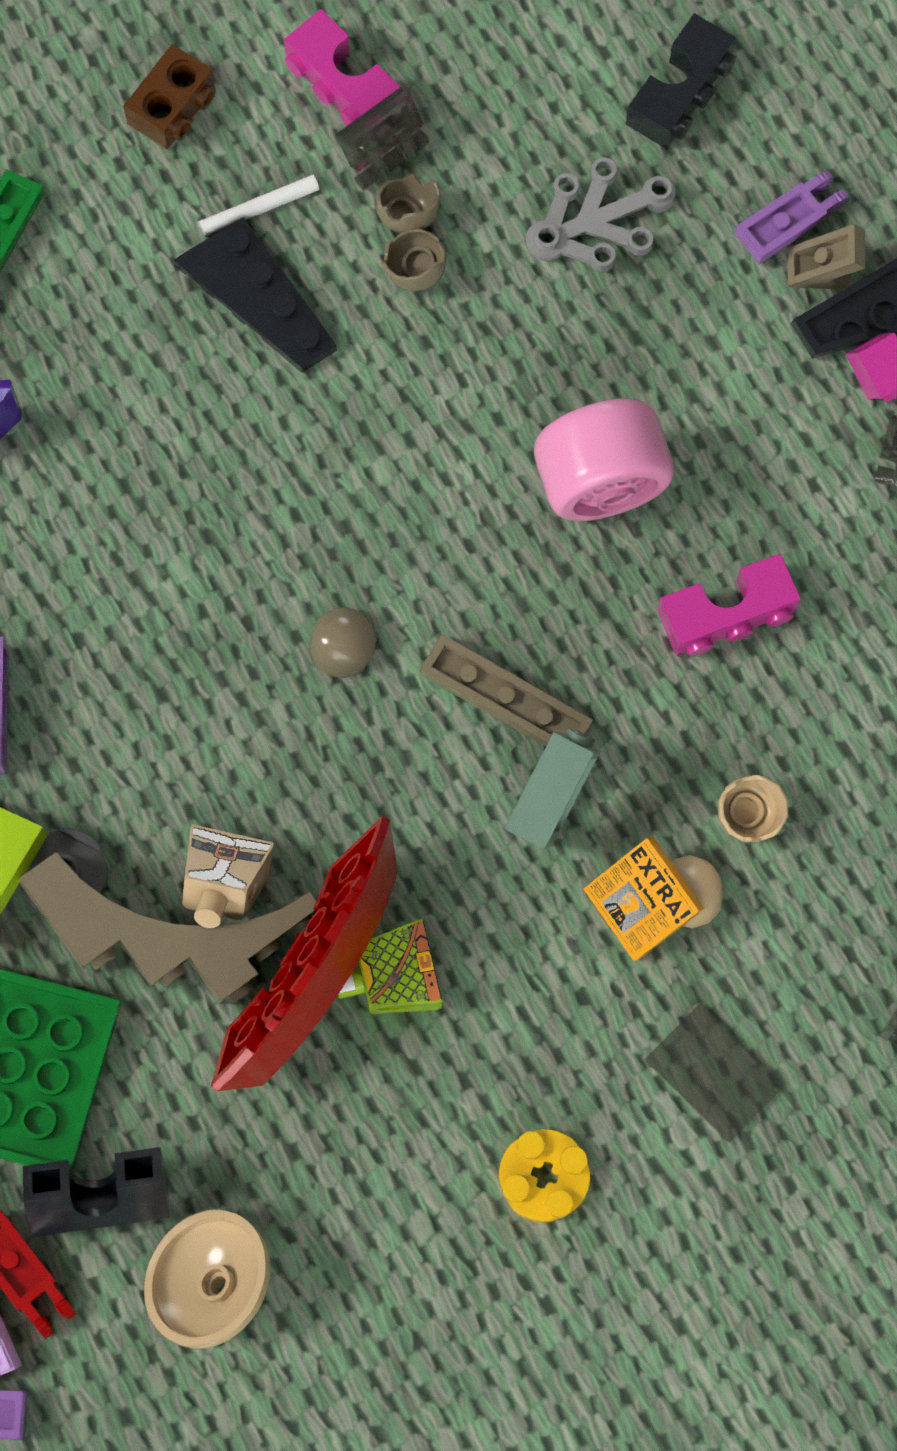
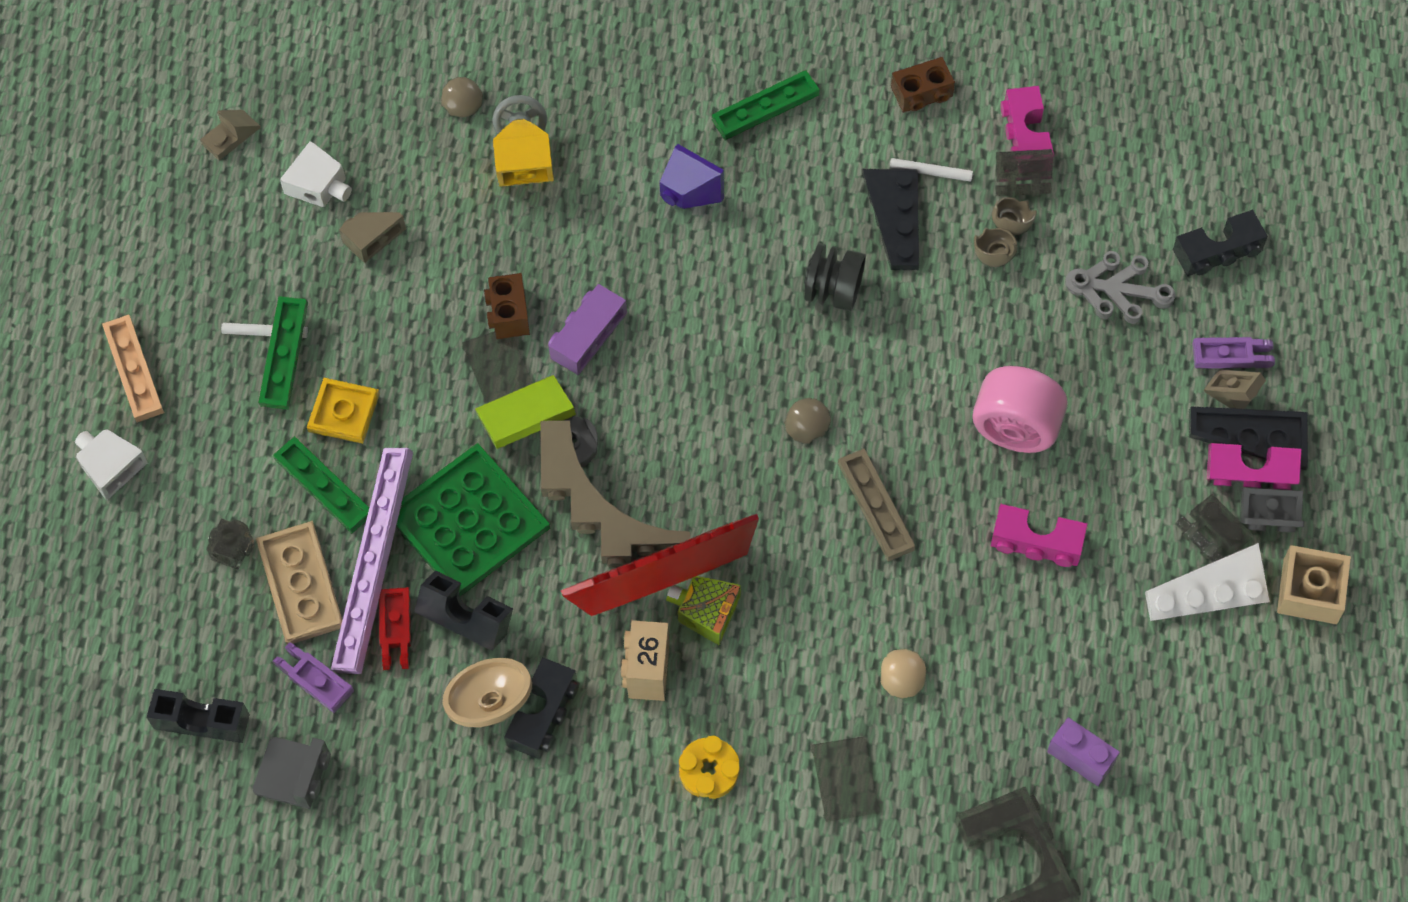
camera: 40 degrees right, 10 degrees down
(224, 874) = (652, 494): tan torso -> none
(248, 431) = (834, 277): none -> pearl dark grey wheel
(283, 1206) = (533, 732): none -> black arch
(378, 1096) = (646, 660): none -> tan brick
(553, 788) = (863, 562): sand green window -> none
(643, 898) = (872, 656): light orange tile -> none
(753, 808) = (970, 650): tan hair -> none

